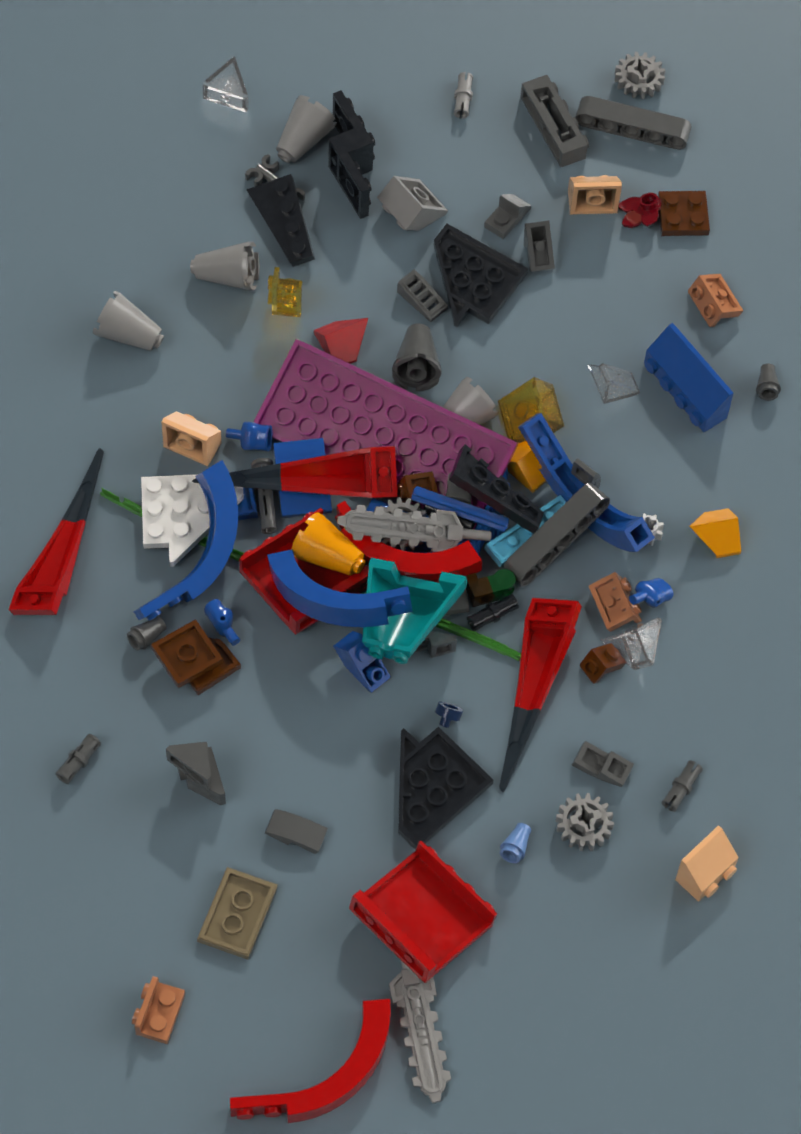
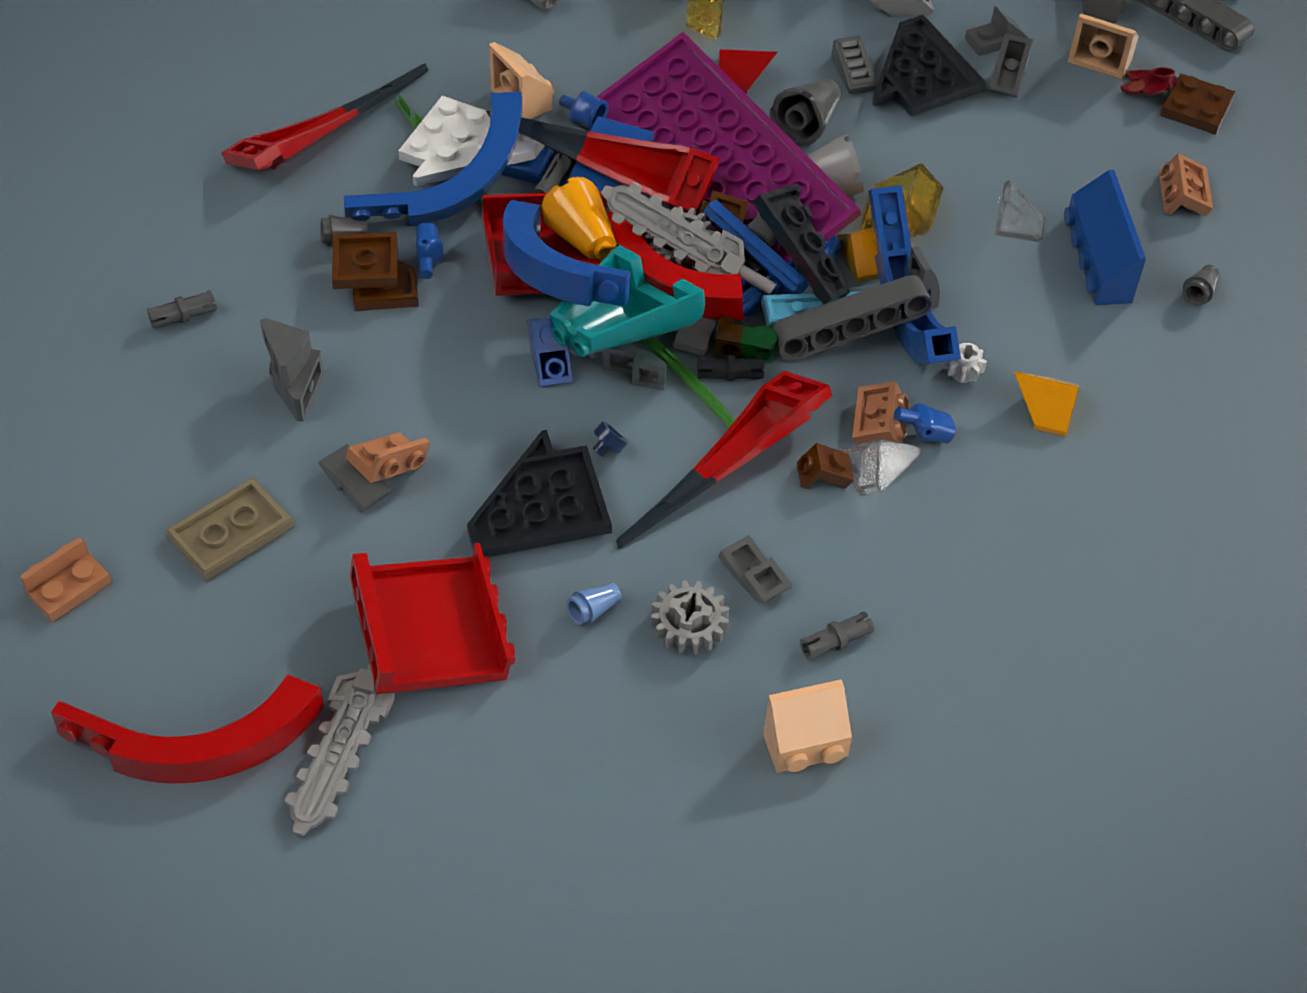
camera: 30 degrees right, 10 degrees down
(311, 805) = (387, 456): none -> nougat bracket

